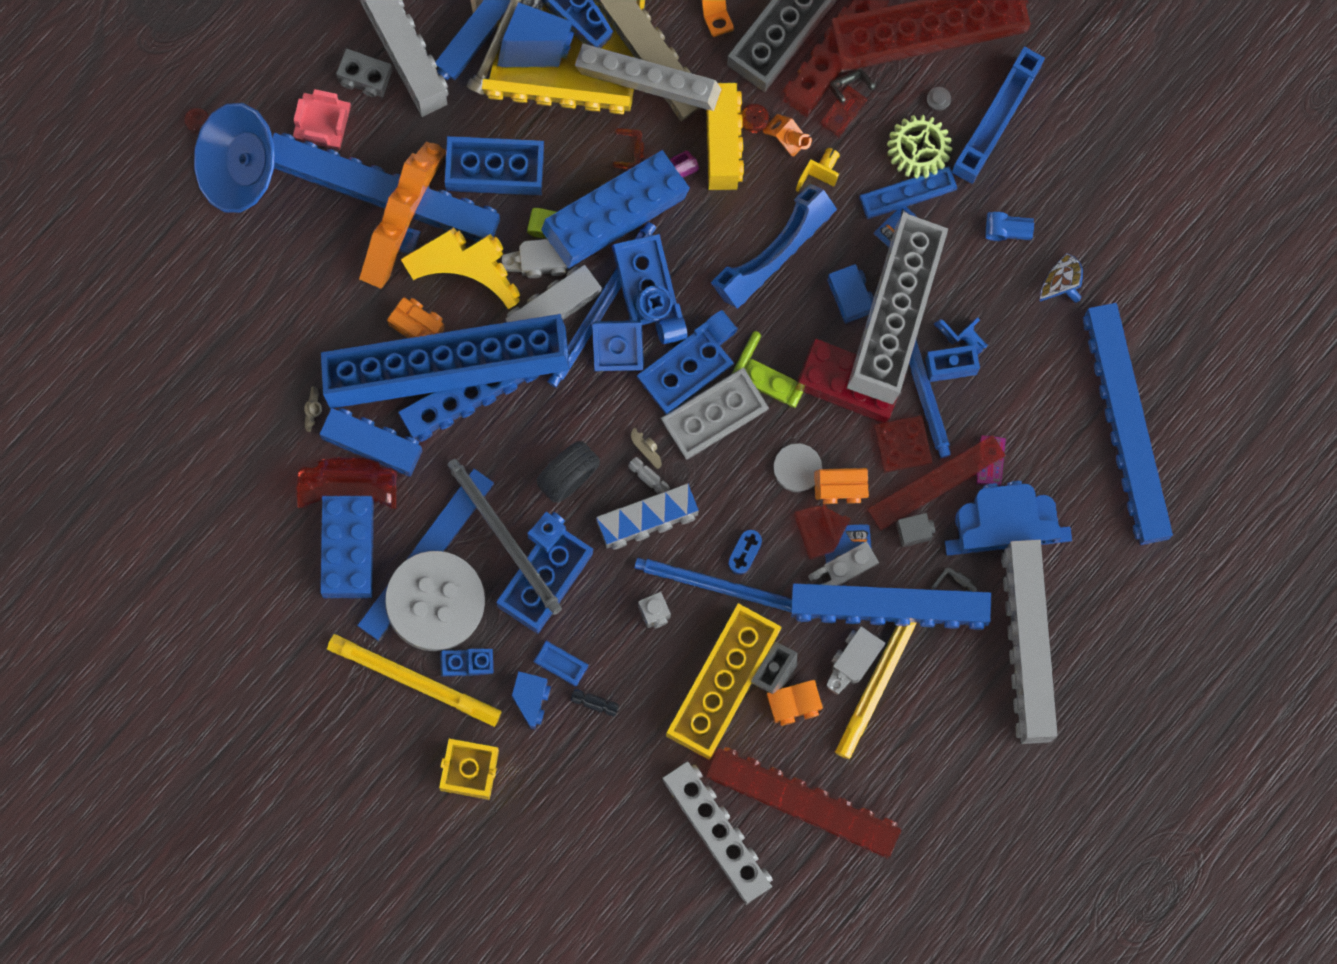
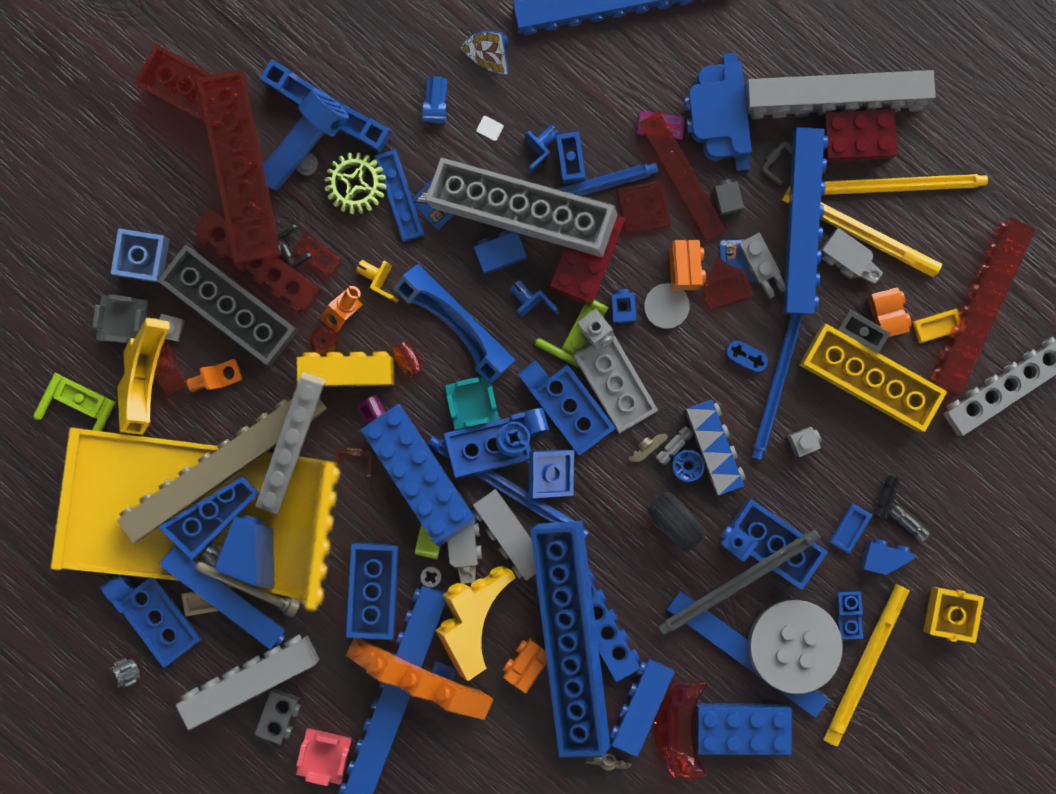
camera: 85 degrees left, 10 degrees up
(509, 219) = (431, 569): none -> light grey bush
(566, 726) = (909, 523): none -> dark grey axle
(620, 482) = (693, 473): none -> blue wheel
(691, 265) = (471, 403): none -> teal panel
(737, 201) = (408, 358): none -> clear red brick
(770, 388) = (596, 330): none -> light grey brick
(782, 755) = (936, 325): none -> yellow tile
(787, 414) = (627, 315): none -> blue brick
(800, 324) = (529, 300): none -> blue bracket
(935, 717) = (905, 184): none -> yellow piece
(982, 285) = (489, 128): none -> white sticker
(986, 105) = (319, 116): none -> blue piece
(986, 667) = (859, 135): none -> dark red brick

